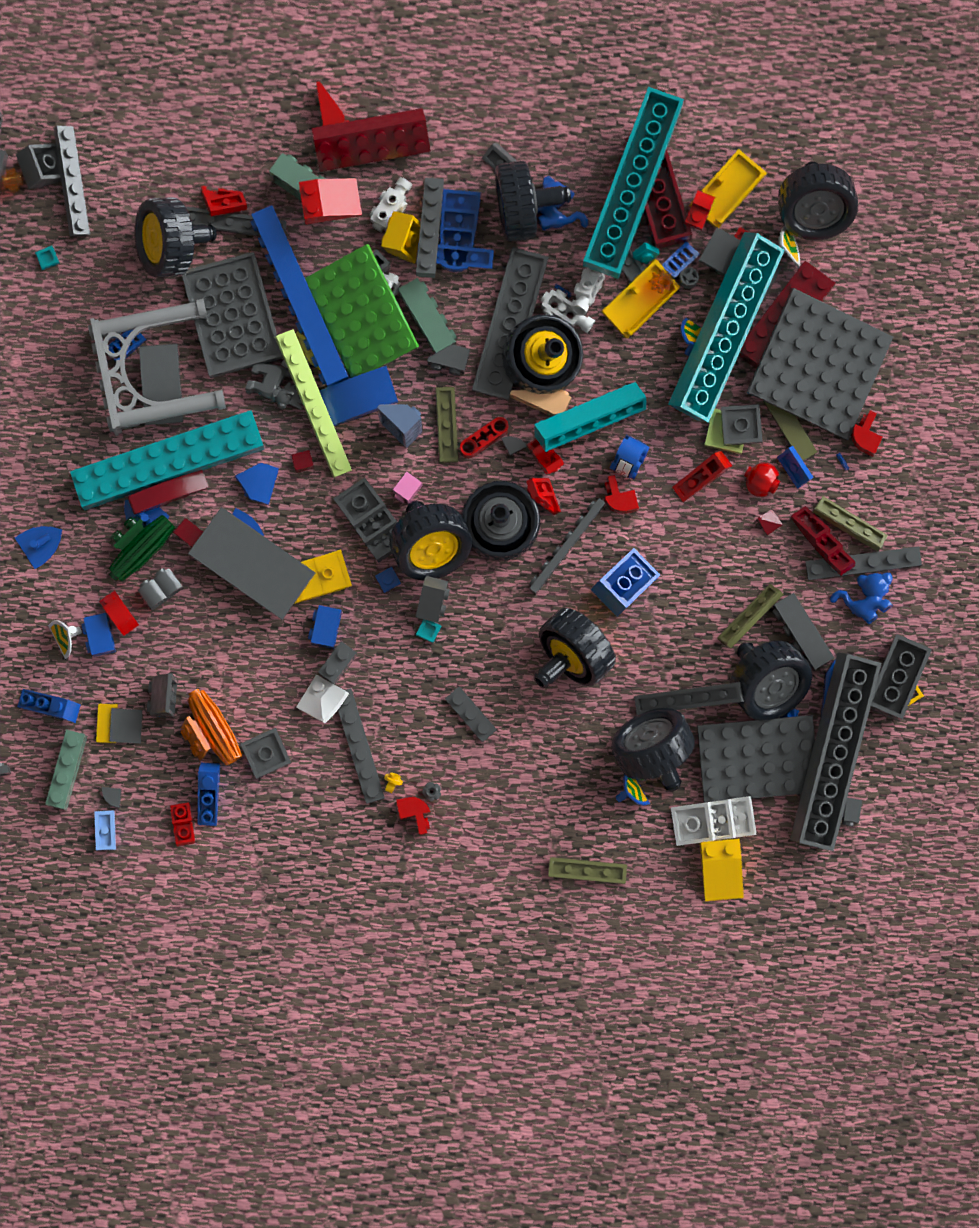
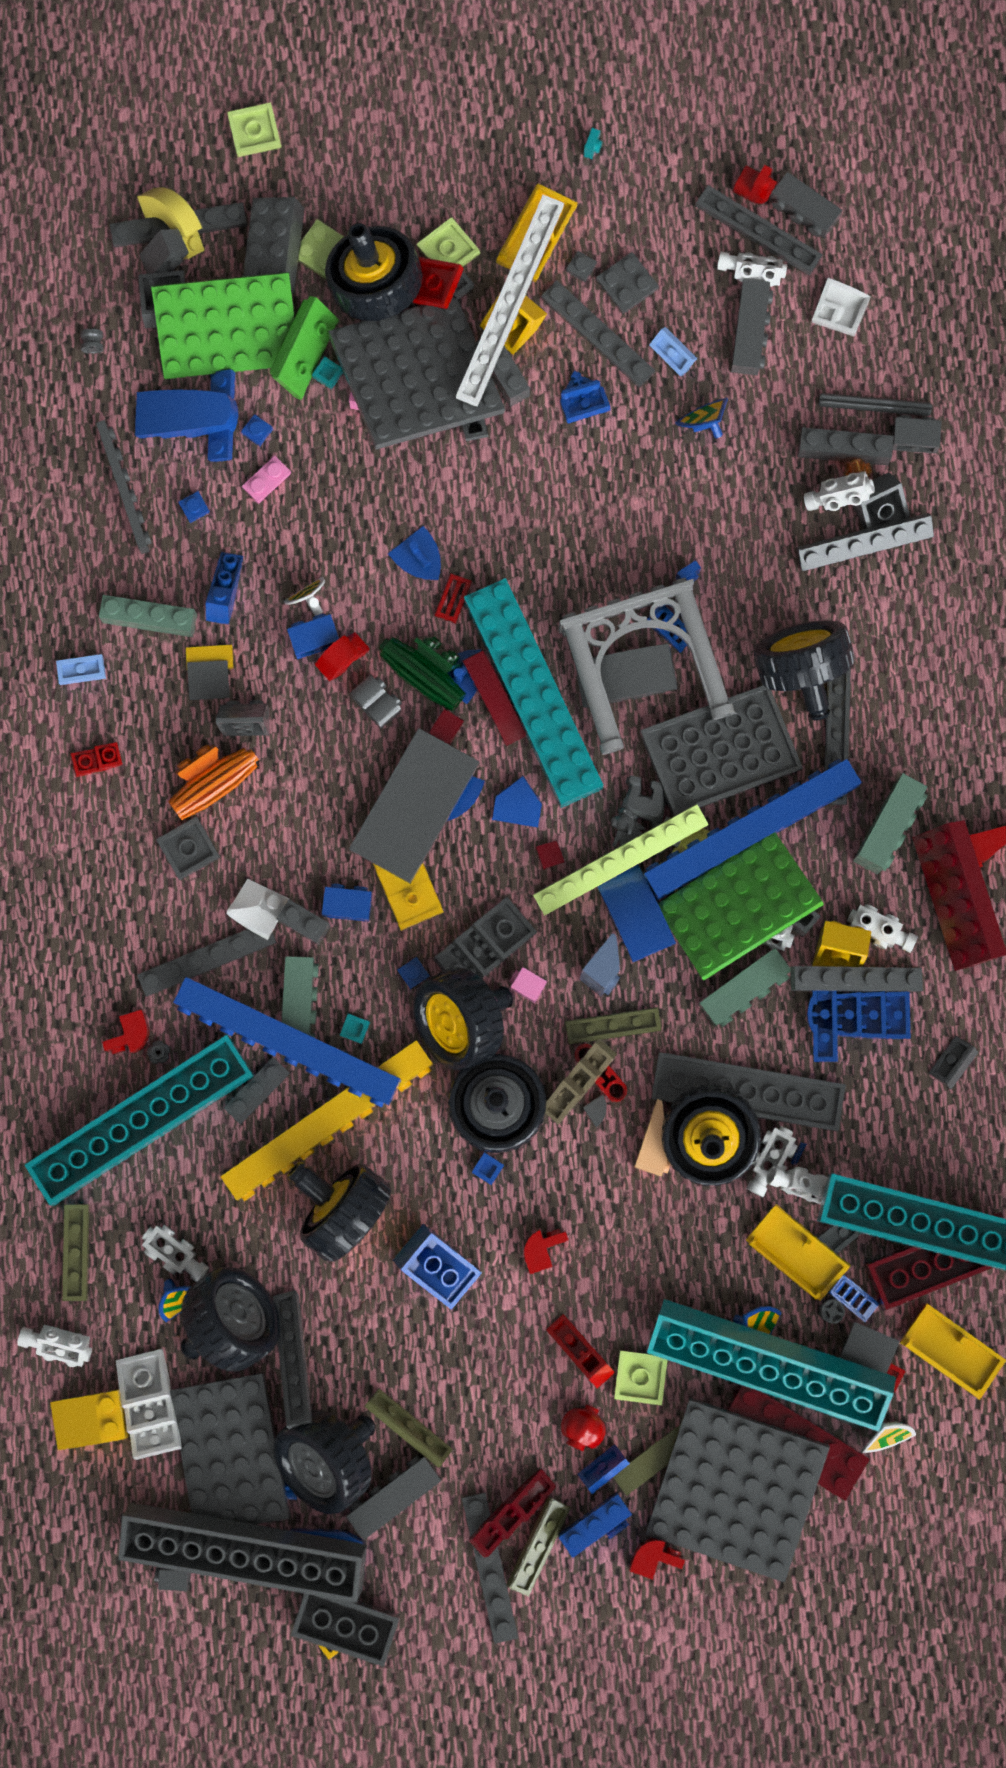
camera: 85 degrees right, 0 degrees up
(29, 194) = (841, 491): none -> white brick
(47, 257) = (768, 524): teal tile -> none
(82, 324) = (689, 572): none -> blue plate
(94, 525) = (446, 616): none -> red tile
(112, 796) = (123, 673): dark grey tile -> none
(208, 793) = (135, 784): blue slope -> none
(223, 201) = (861, 725): red wing -> none
(329, 199) = (873, 850): slope -> none
(393, 780) = (166, 1003): yellow plate -> none
(404, 674) = (300, 993): none -> sand green brick
(432, 598) = (391, 1028): dark grey brick -> none
(435, 681) = (287, 1041): none -> blue brick
(450, 358) = (695, 1024): dark grey slope -> none
(486, 808) = (139, 1120): none -> teal brick
(489, 452) = (579, 1081): none -> dark tan slope
(501, 659) = (319, 1127): none -> yellow brick
(520, 201) = (902, 1088): black wheel -> none
(543, 494) = (536, 1153): red wing -> none
(548, 461) = (585, 1151): red brick -> none
(551, 534) = (487, 1168): none -> blue plate
(552, 217) = (917, 1131): blue animal -> none
(561, 552) = (466, 1182): dark grey plate -> none
(590, 416) = (638, 1202): teal brick -> none
(592, 794) = (170, 1249): none -> white brick
(629, 457) = (592, 1255): blue brick -> none
(645, 253) = (856, 1253): teal plate -> none
(659, 888) = (60, 1342): none -> white brick
(666, 281) = (826, 1272): clear orange gear -> none
(699, 210) = (918, 1317): red brick -> none
(741, 424) = (648, 1395): dark grey plate -> none
(769, 522) = (531, 1442): dark red slope -> none
(817, 201) = (947, 1469): black wheel -> none
(837, 477) = (594, 1524): none -> blue brick
(874, 588) = (458, 1584): blue animal -> none

